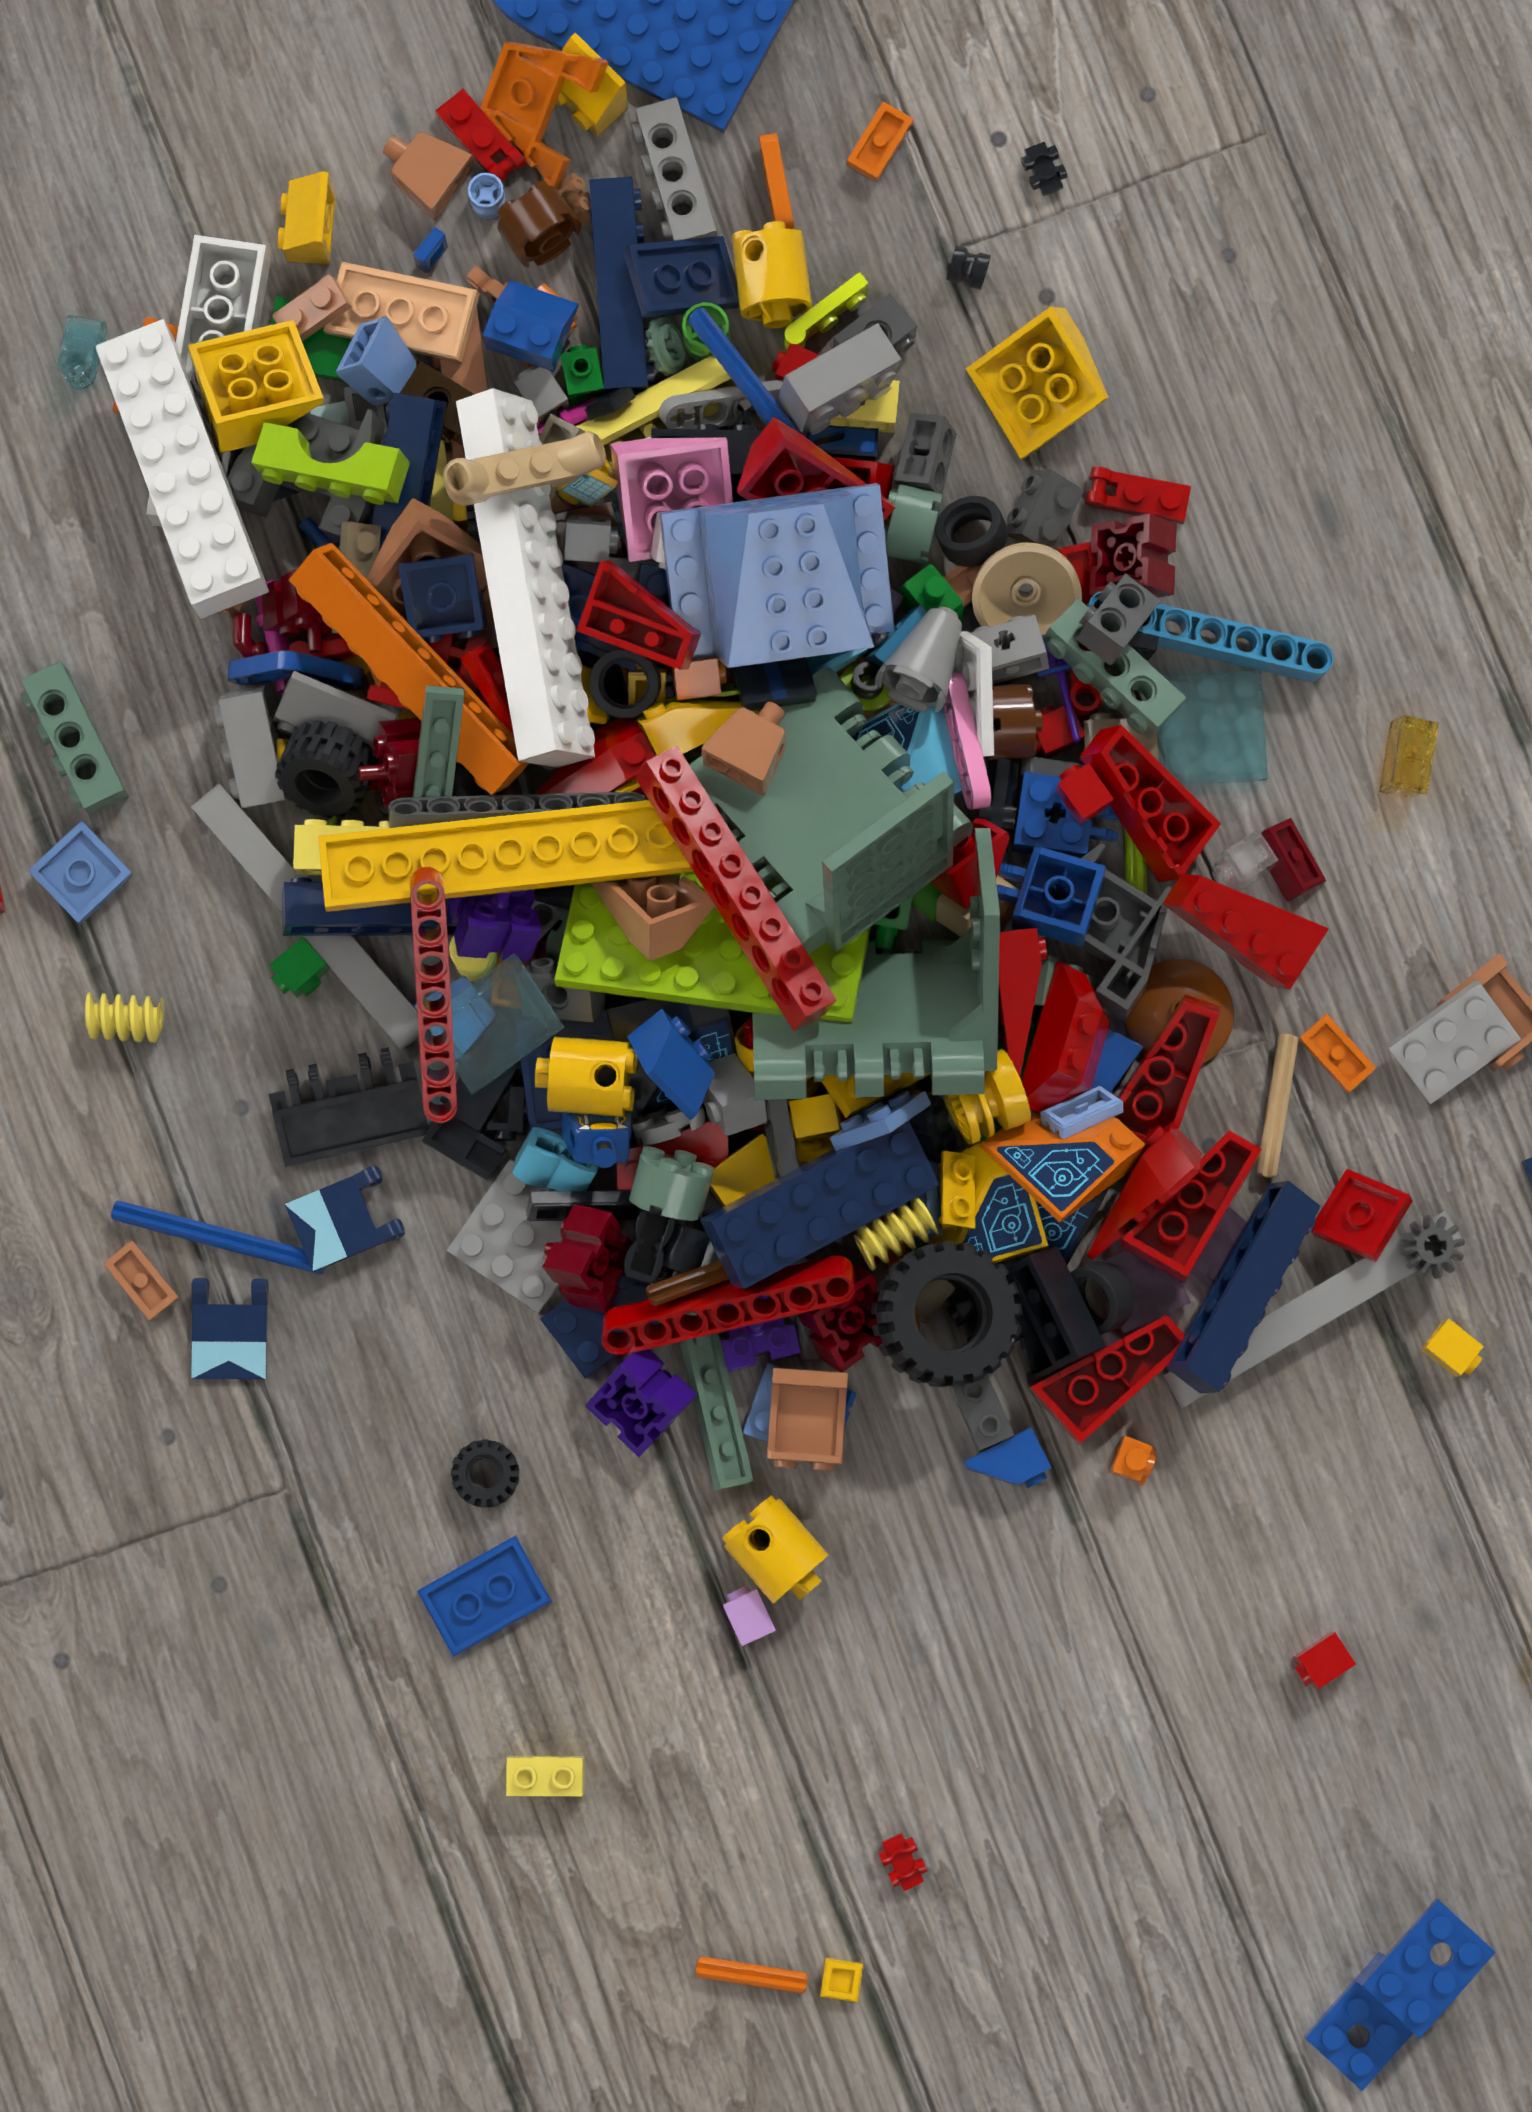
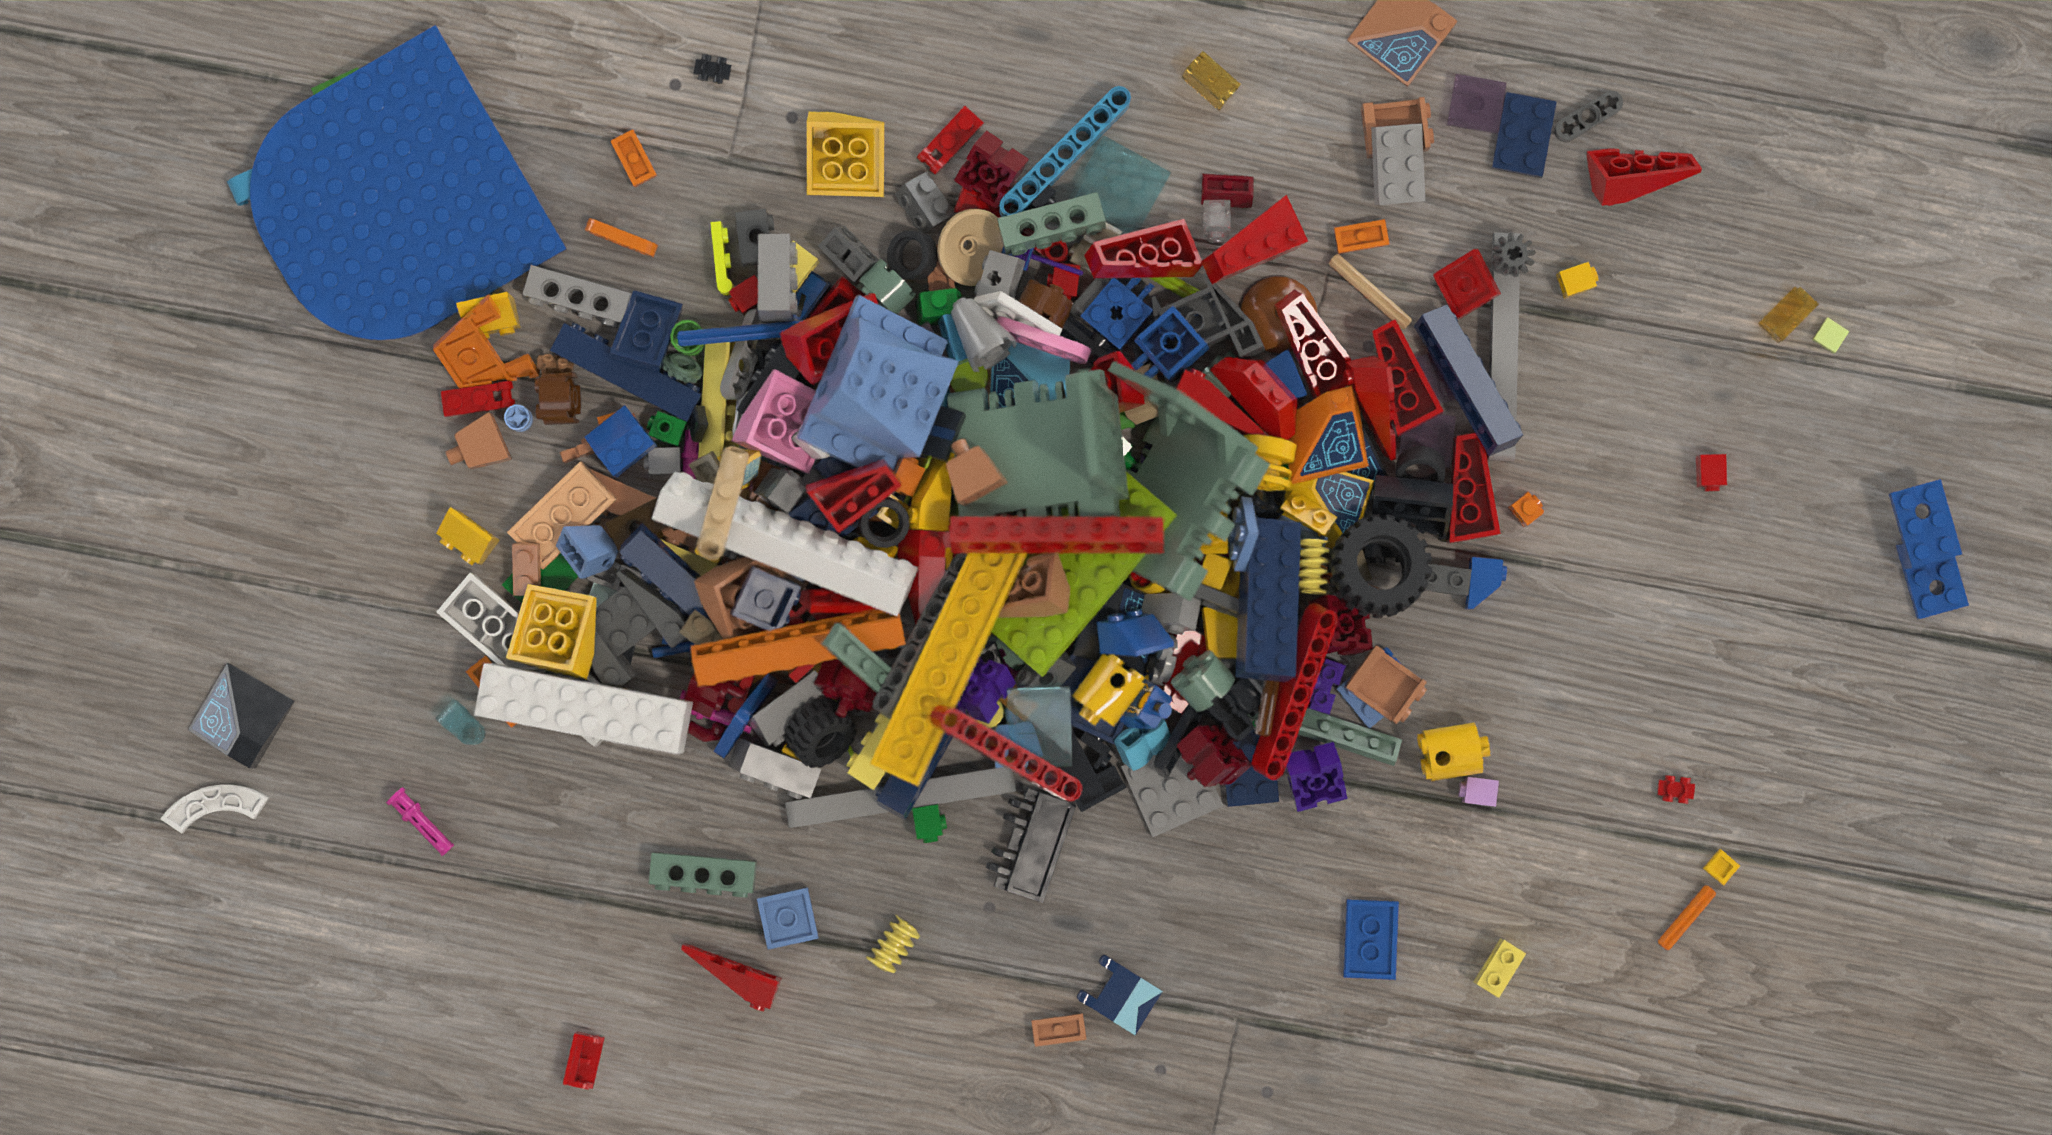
camera: 55 degrees left, 5 degrees up
(211, 1235) = (1060, 968): blue axle -> none
(337, 1223) = (1096, 892): dark blue flag -> none
(372, 472) = (661, 595): lime arch -> none
(430, 250) = (531, 473): blue tile -> none
(462, 1473) = (1299, 911): black tyre -> none
(771, 274) = (679, 276): yellow cylinder -> none
(861, 689) = (970, 382): black bush -> none
(960, 265) = (741, 157): black wheel -> none
(1082, 1112) = (1311, 409): light blue tile -> none
(1083, 792) = (1117, 289): red brick -> none
(1118, 619) = (1027, 203): dark grey brick -> none

